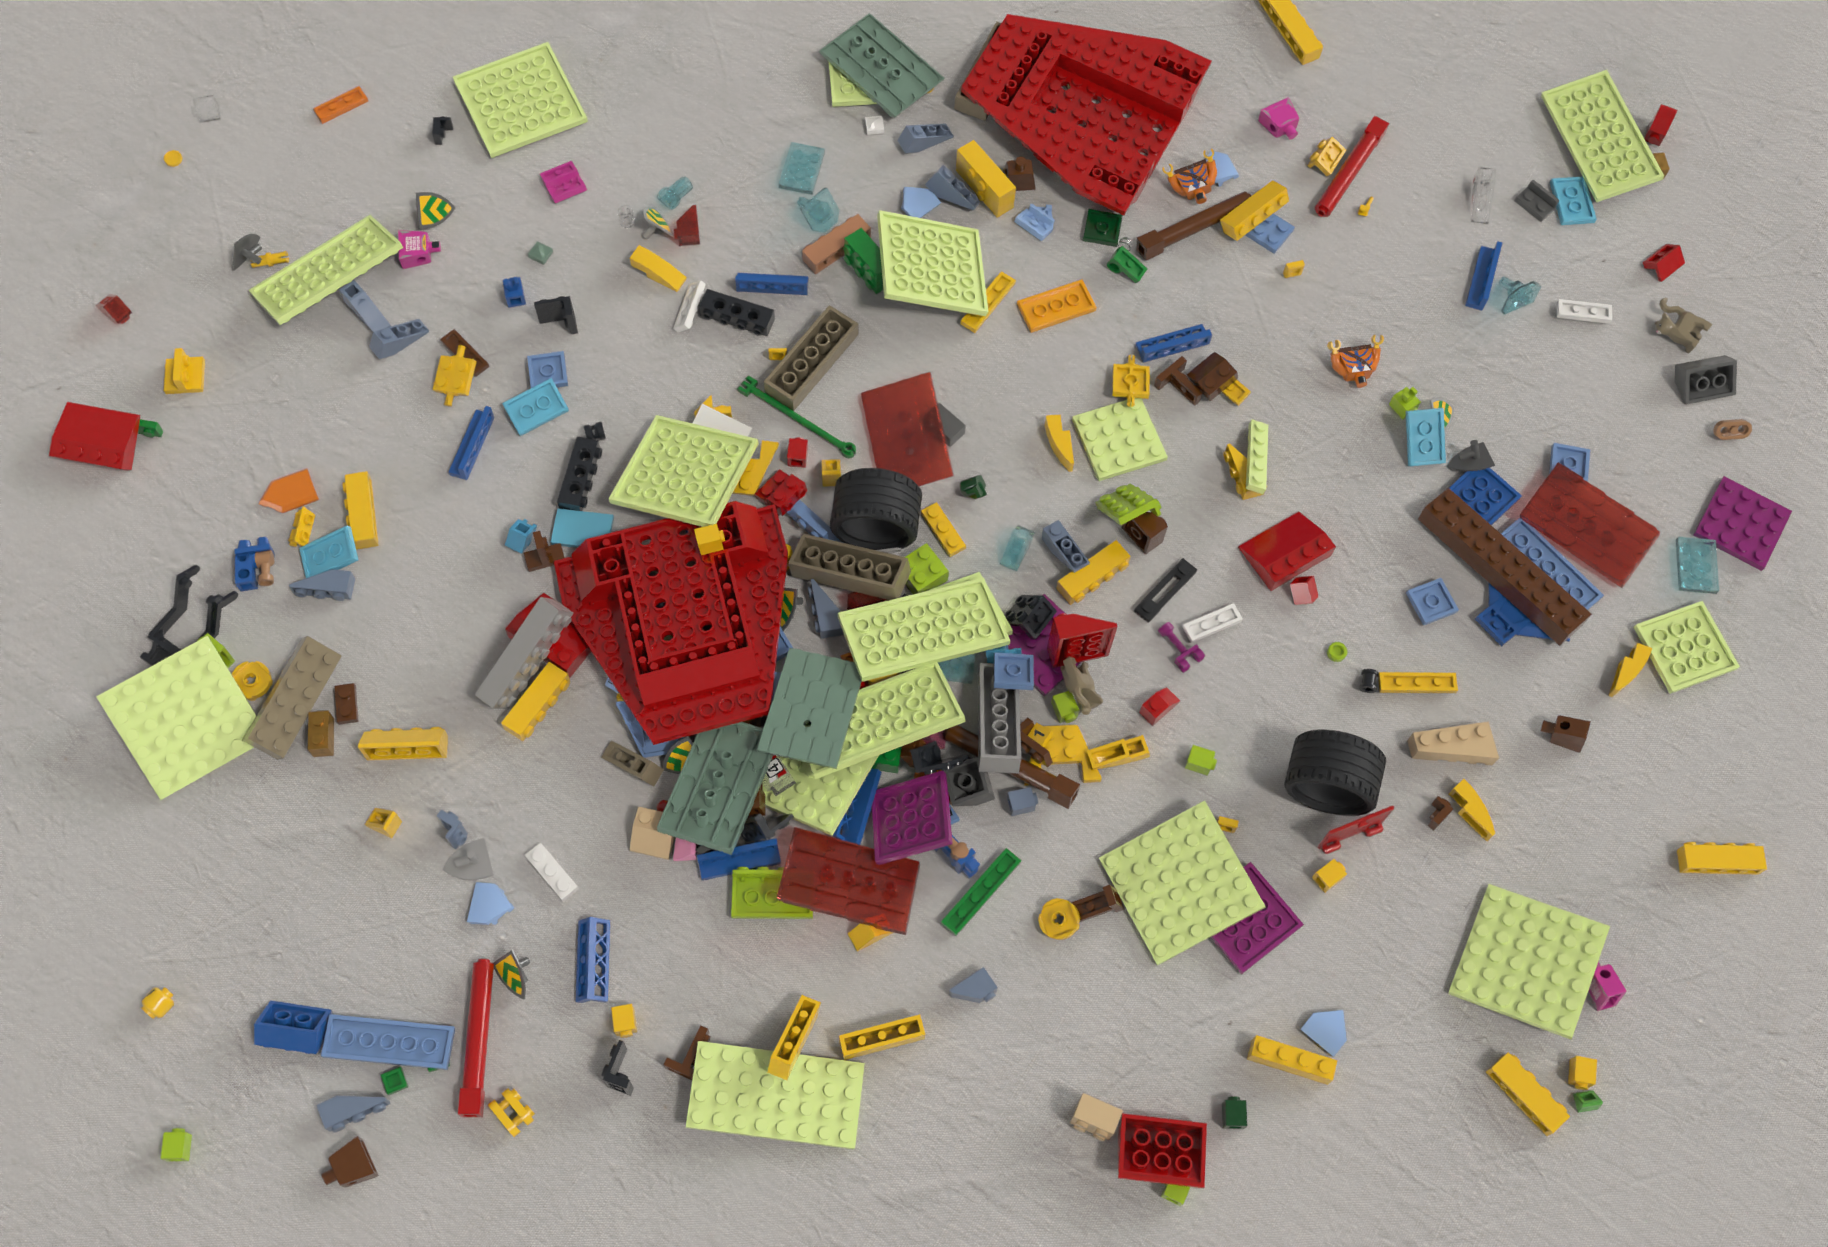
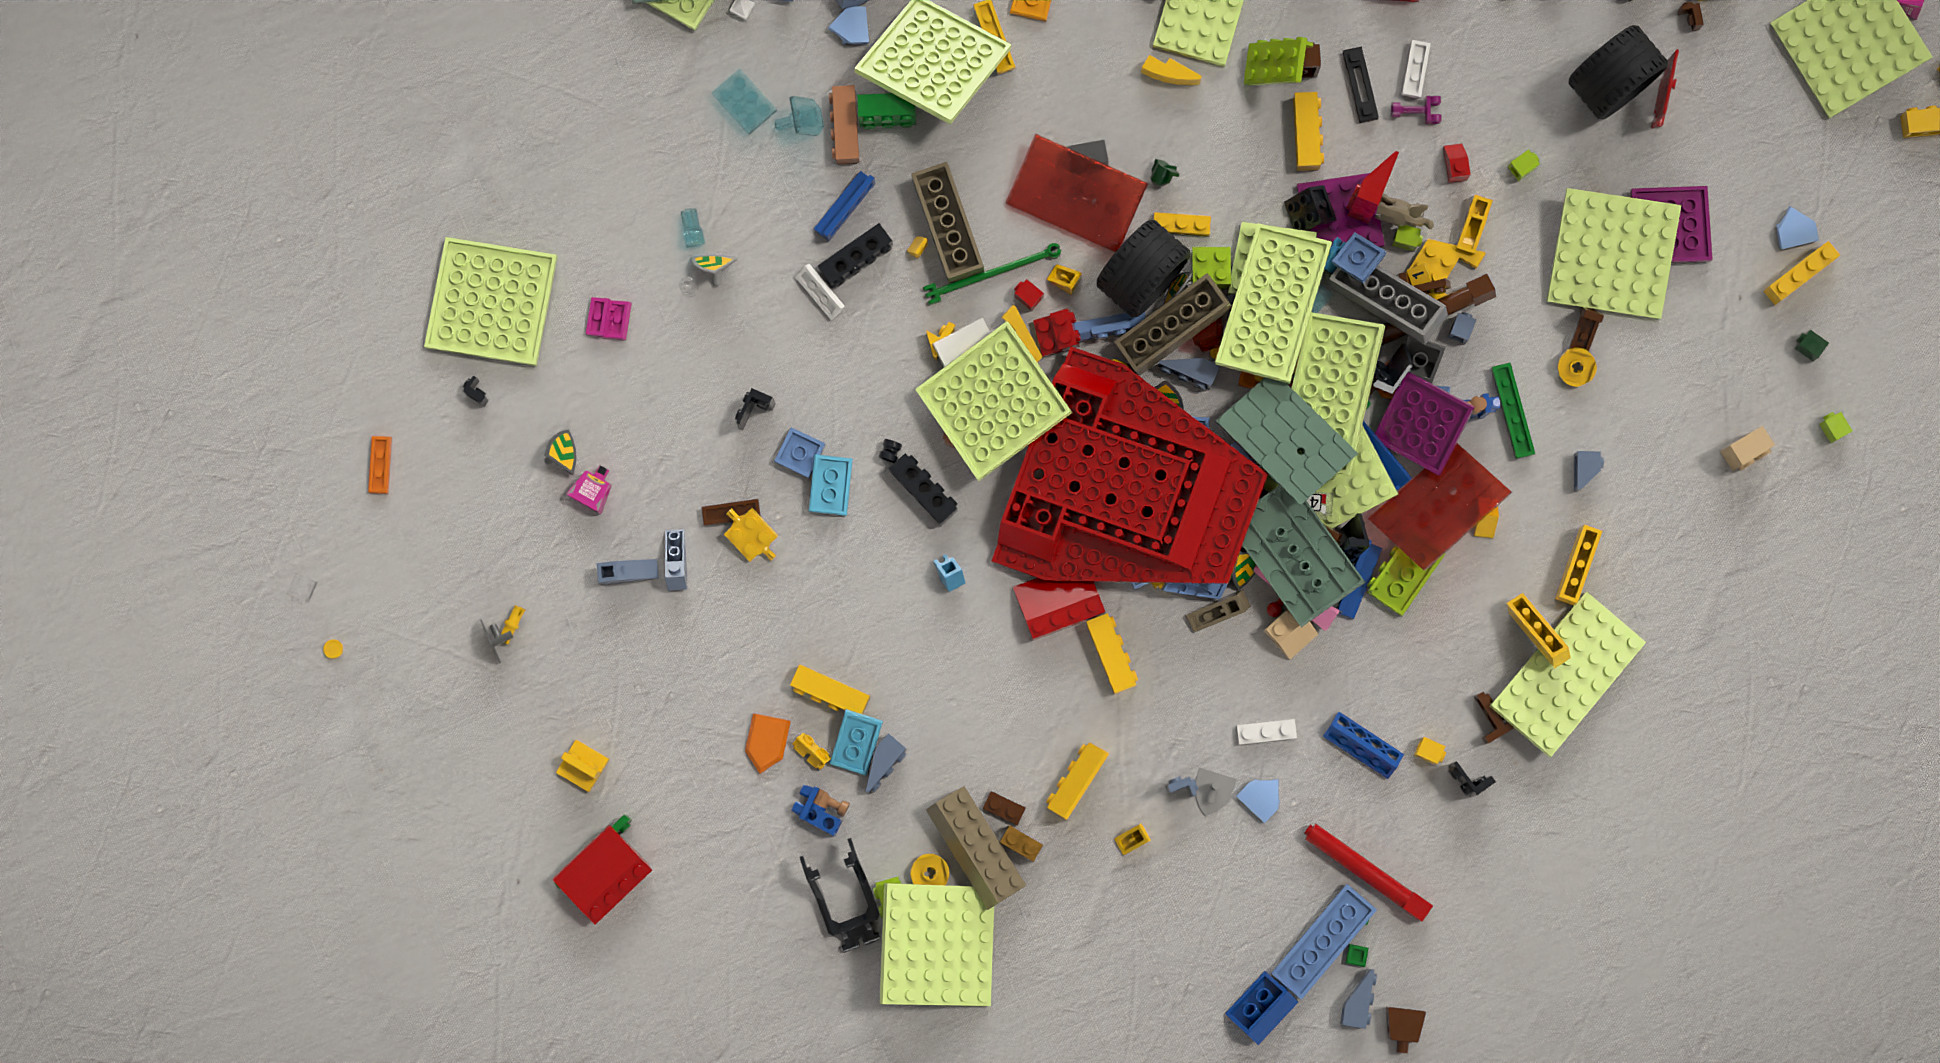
camera: 45 degrees left, 15 degrees up
(114, 309) = (469, 789): clear red slope -> none
(325, 269) = (564, 581): yellowish green plate -> none
(472, 443) = (827, 560): blue fence -> none
(511, 973) = (1334, 813): shield -> none
(514, 292) = (698, 432): blue brick -> none
(524, 654) = (1075, 636): light grey brick -> none
(524, 1113) = (1452, 871): yellow brick -> none
(540, 253) = (671, 384): sand green tile -> none
(544, 554) = (979, 566): reddish brown bracket -> none
(574, 526) = (975, 519): medium azure tile -> none
(657, 268) = (762, 294): yellow slope -> none
(687, 228) = (739, 241): clear red slope -> none
(709, 539) = (1082, 421): yellow brick -> none
(1017, 547) = (1242, 175): clear light blue slope -> none
(1063, 546) = (1272, 138): sand blue slope -> none
(1162, 1150) = (1807, 418): red slope -> none
(1227, 824) = (1590, 183): yellow tile -> none
(1330, 875) = (1683, 136): yellow brick -> none

